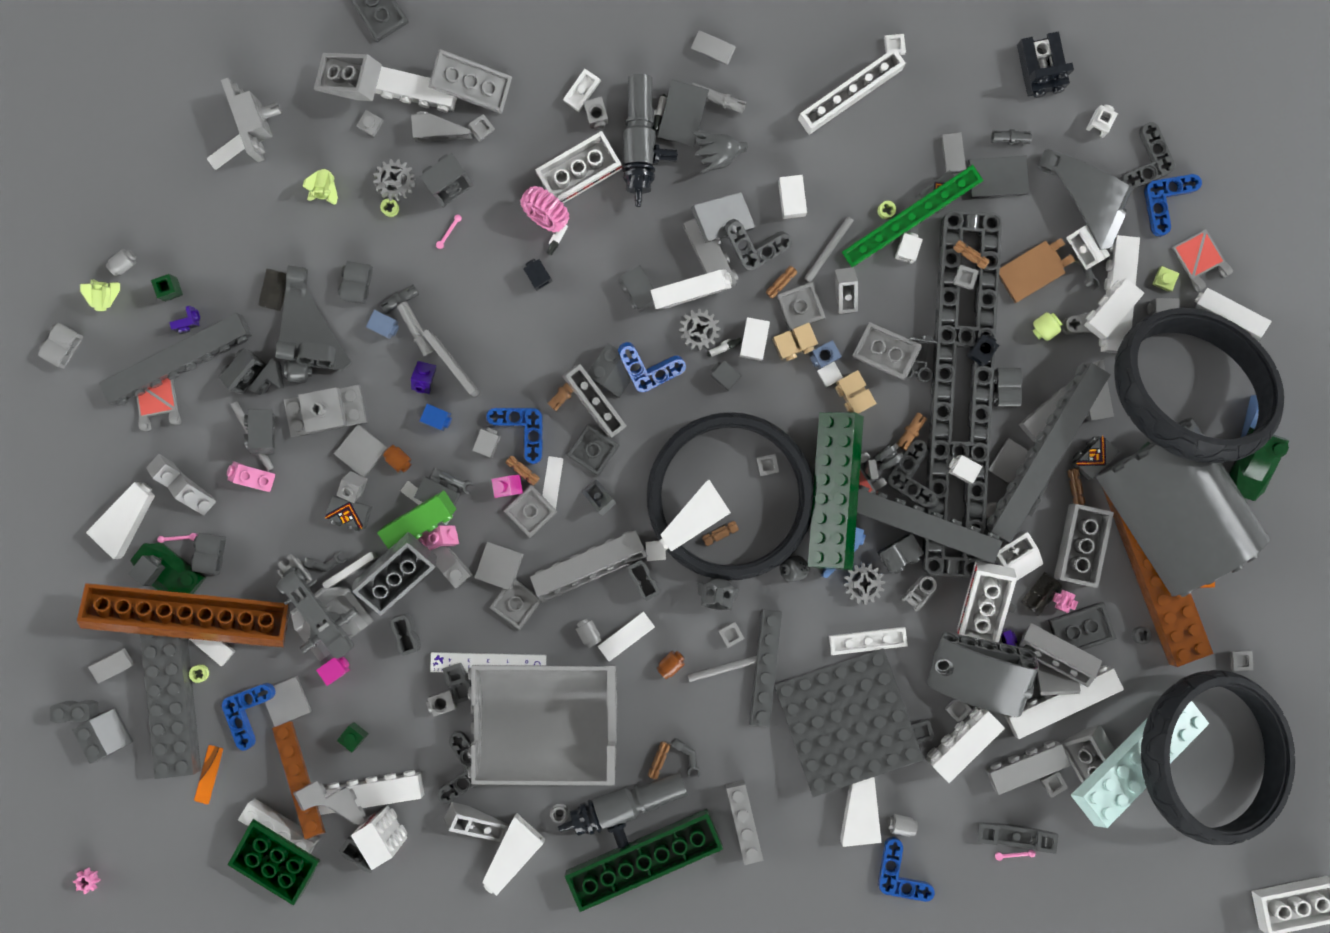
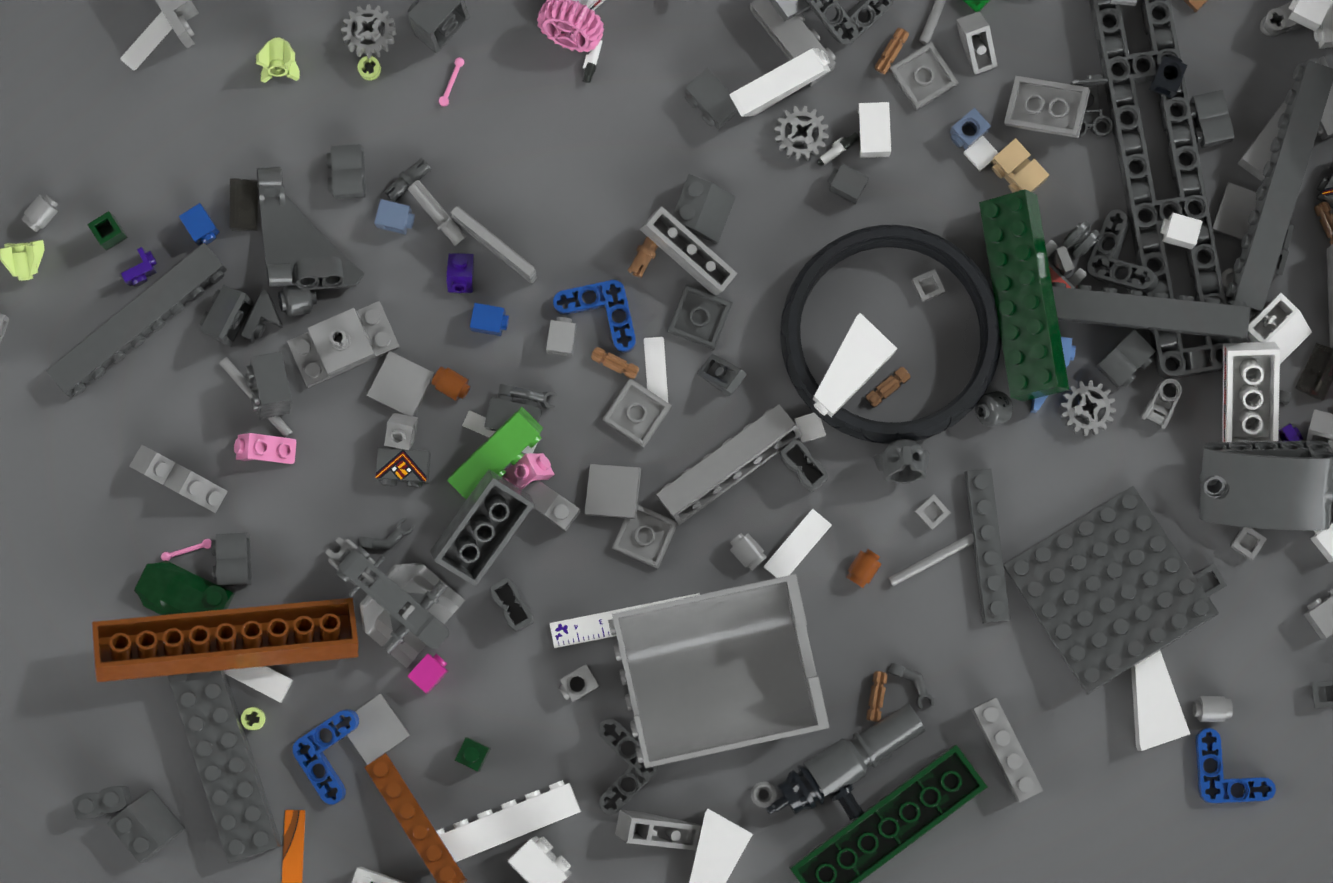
camera: 10 degrees left, 5 degrees down
(111, 665) = (137, 733): light grey slope -> none
(120, 522) = (111, 541): white slope -> none
(147, 570) = (161, 594): dark grey brick -> none
(158, 402) = (123, 381): flag -> none
(237, 298) = (199, 225): none -> blue brick
(340, 801) = (479, 837): light grey arch -> none
(351, 569) = (422, 538): white tile -> none
(458, 680) = (595, 653): dark grey slope -> none
(507, 486) = (600, 385): dark pink brick -> none
(537, 274) = (578, 109): black brick -> none
(643, 374) = (743, 204): beam -> none
(791, 343) = (923, 124): tan piece -> none
(868, 640) = (1110, 481): white tile -> none
(911, 431) = (1103, 202): medium nougat pin -> none
(964, 743) = (1266, 581): white brick -> none
(1047, 326) = (1243, 31): yellowish green head -> none

